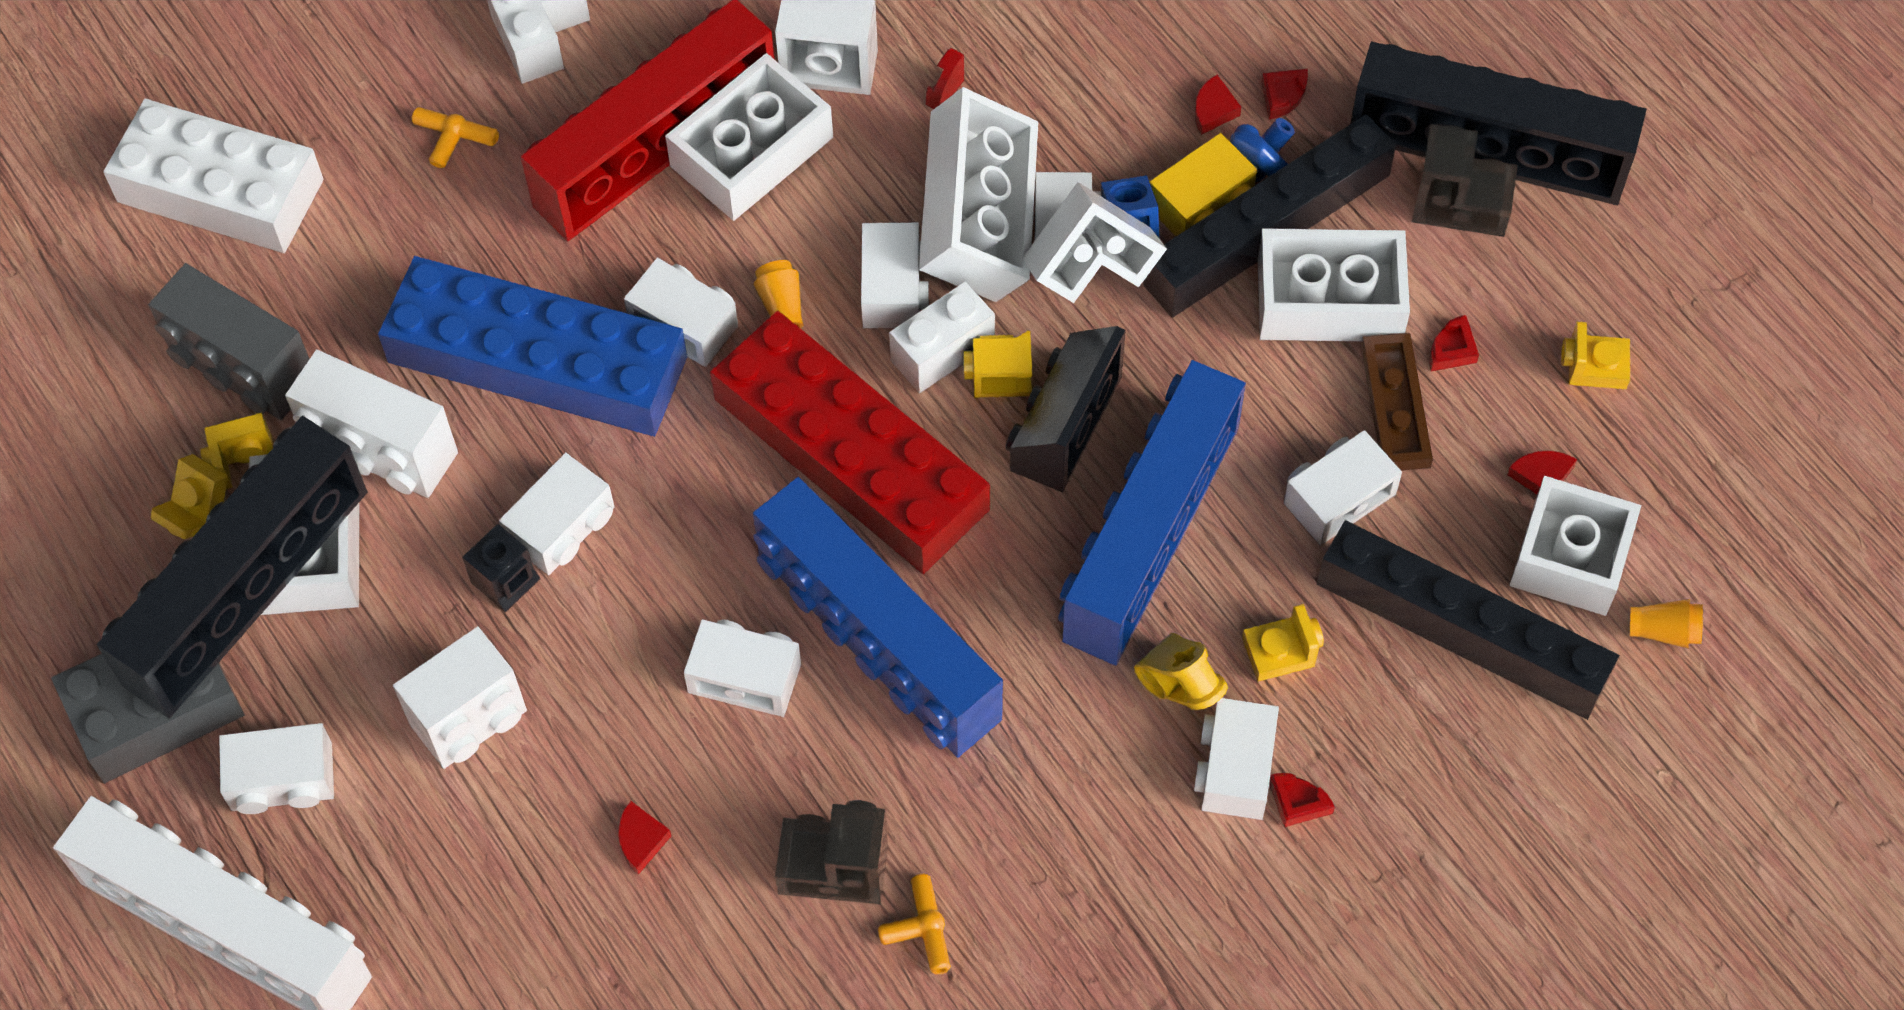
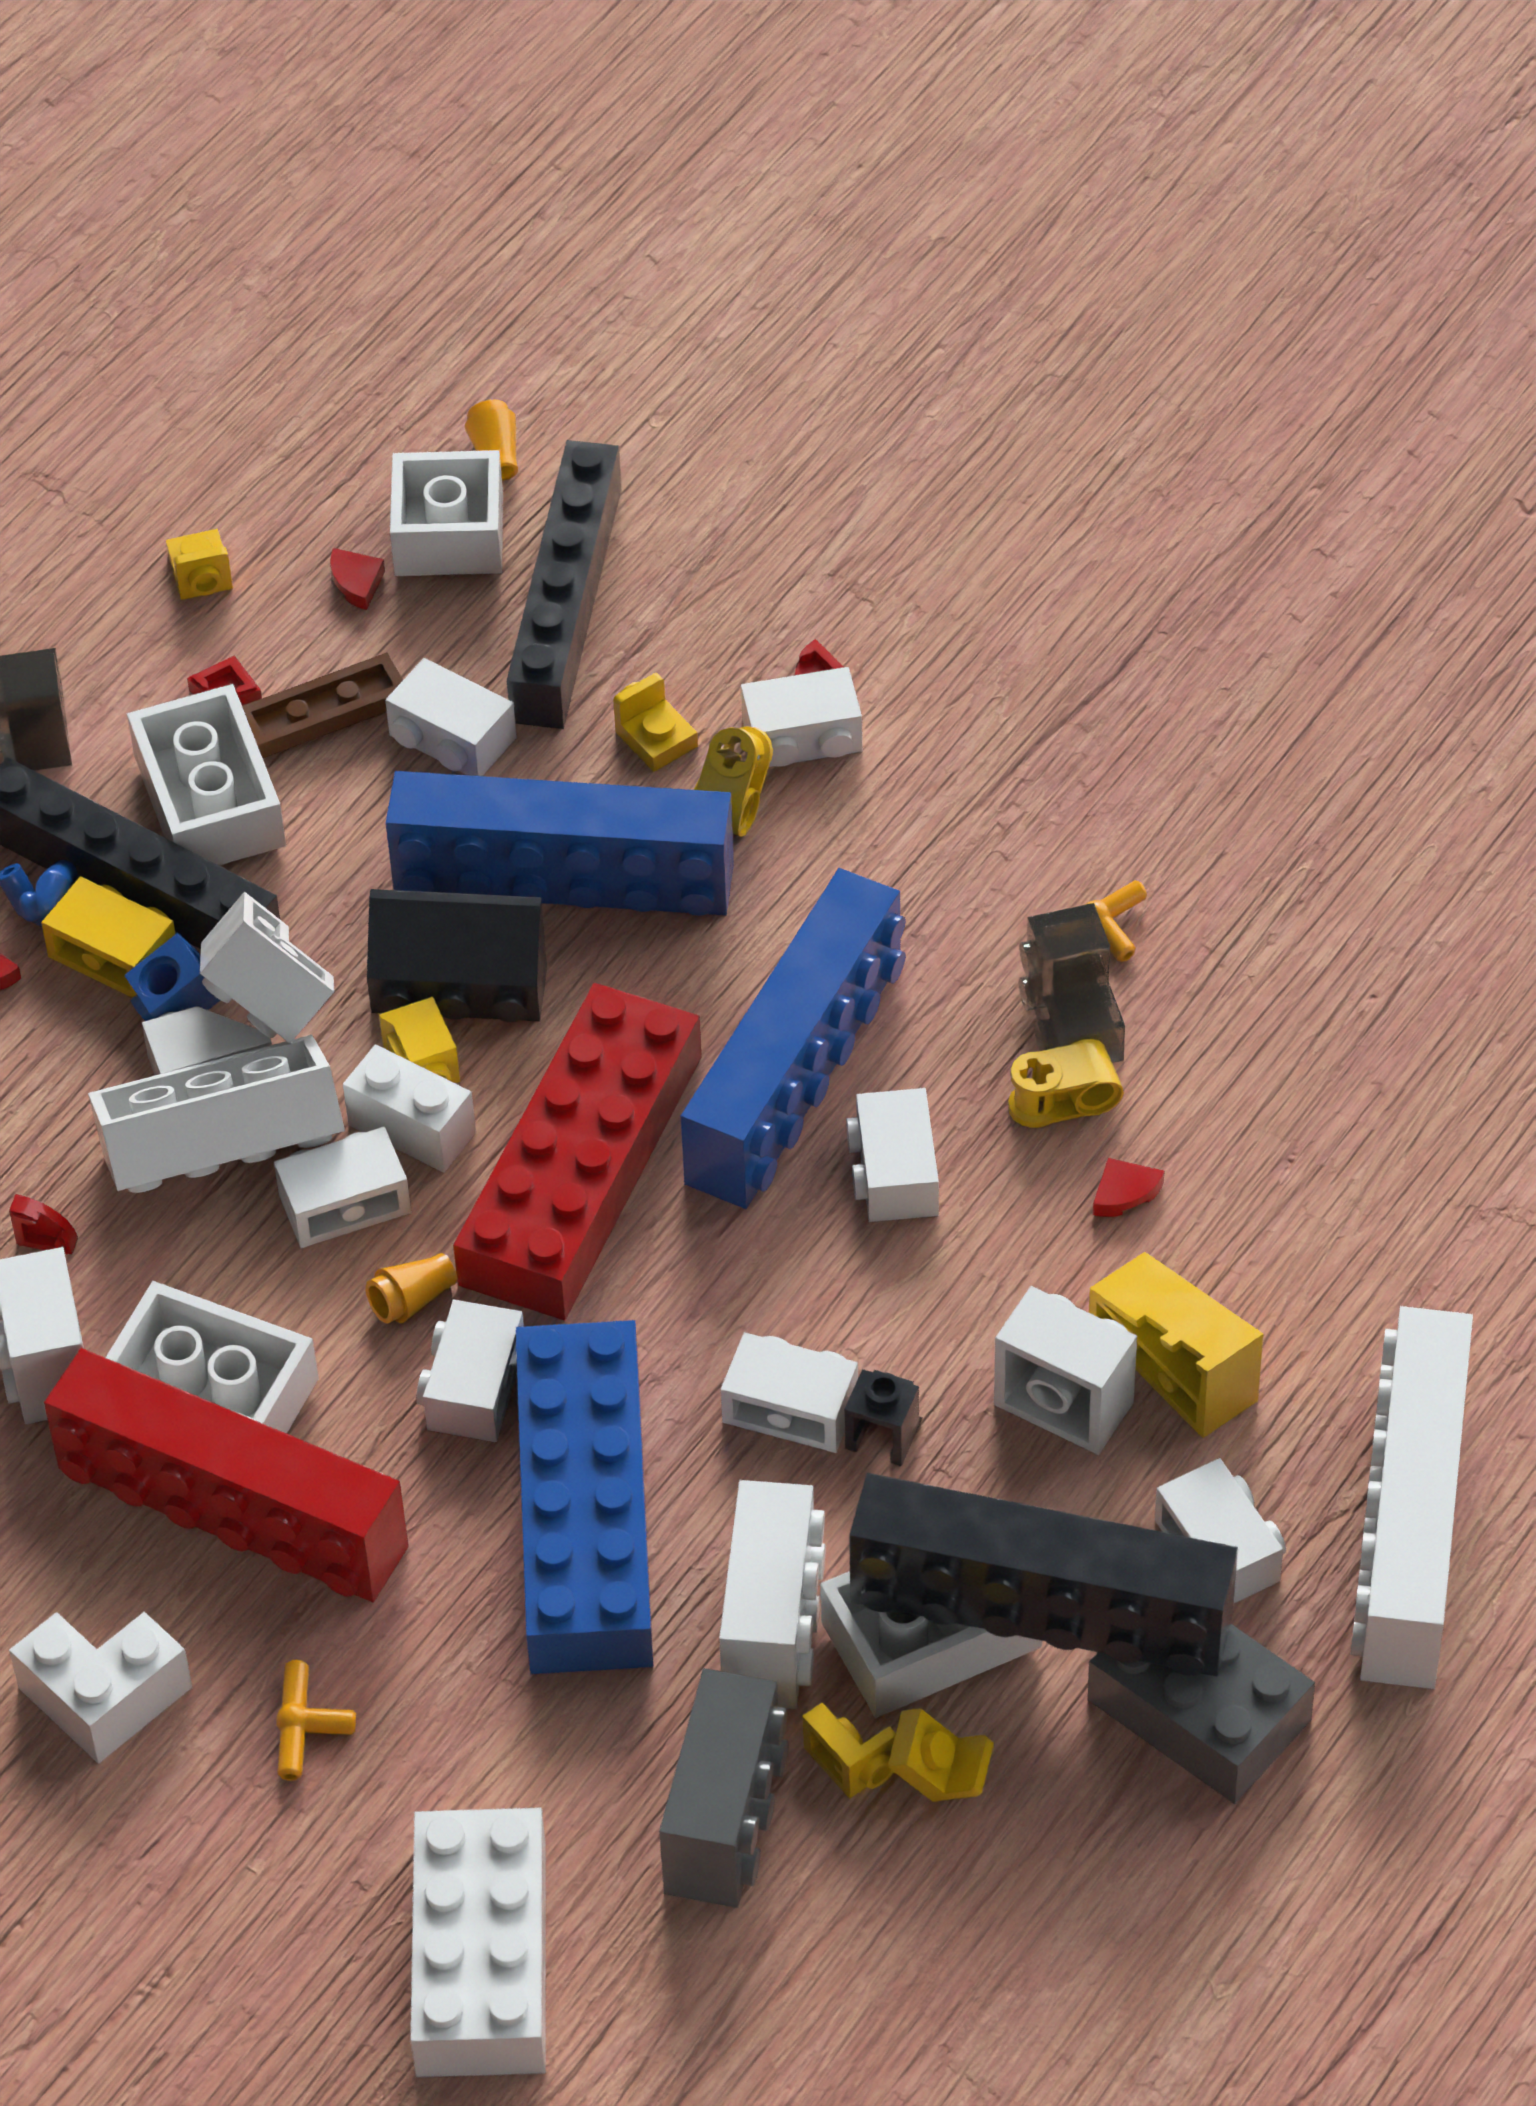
camera: 110 degrees left, 10 degrees down
(458, 803) = (1186, 1342): none -> yellow wedge
(755, 826) = (1069, 1081): none -> yellow piece

